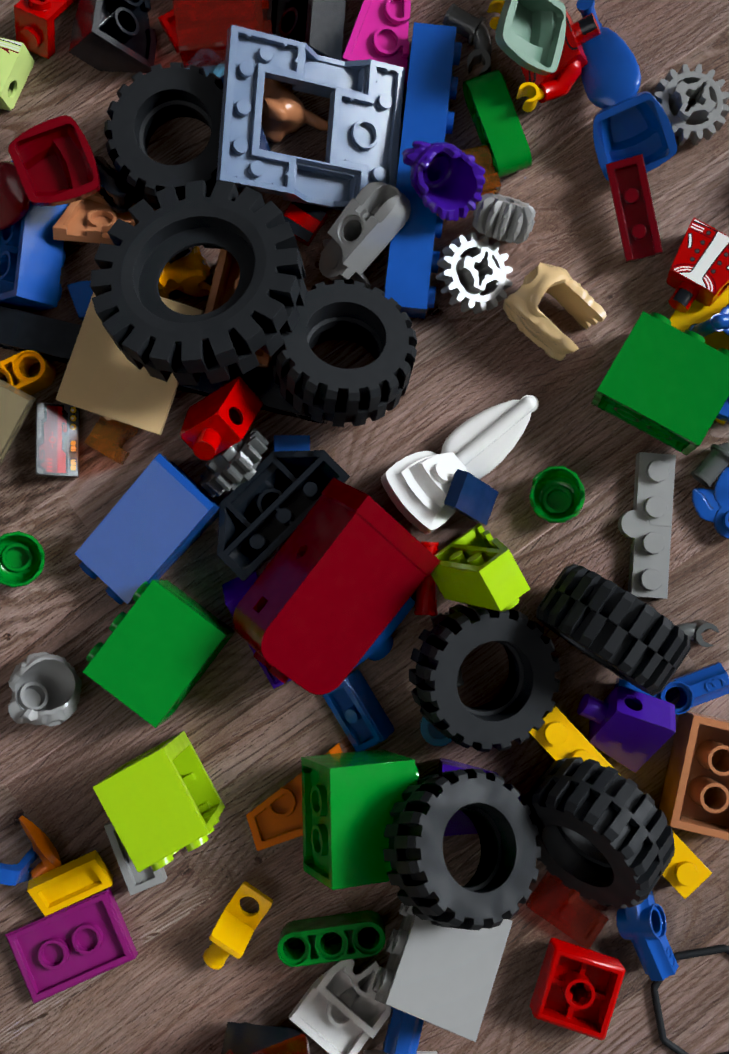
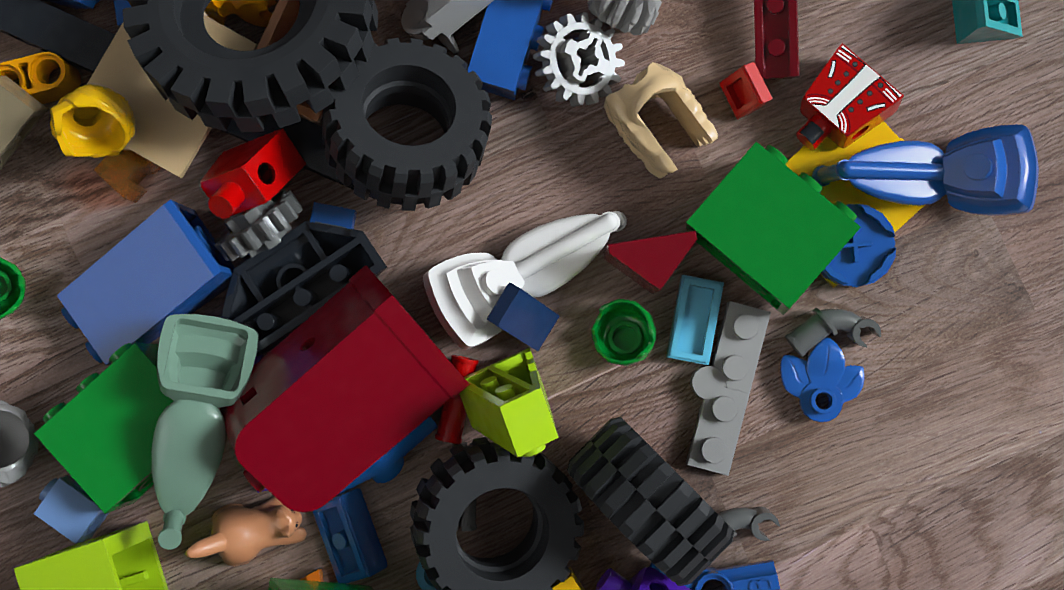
camera: 10 degrees right, 0 degrees up
(57, 440) = (58, 176): slope -> none
(80, 401) = (92, 122): none -> yellow hair
(121, 730) = (69, 509): none -> medium blue brick
(217, 589) = (201, 368): none -> sand green piece
(270, 723) = (243, 532): none -> nougat animal
(569, 430) = (650, 259): none -> dark red slope
(612, 473) = (694, 320): none -> medium azure tile
(619, 273) = (745, 90): none -> red tile

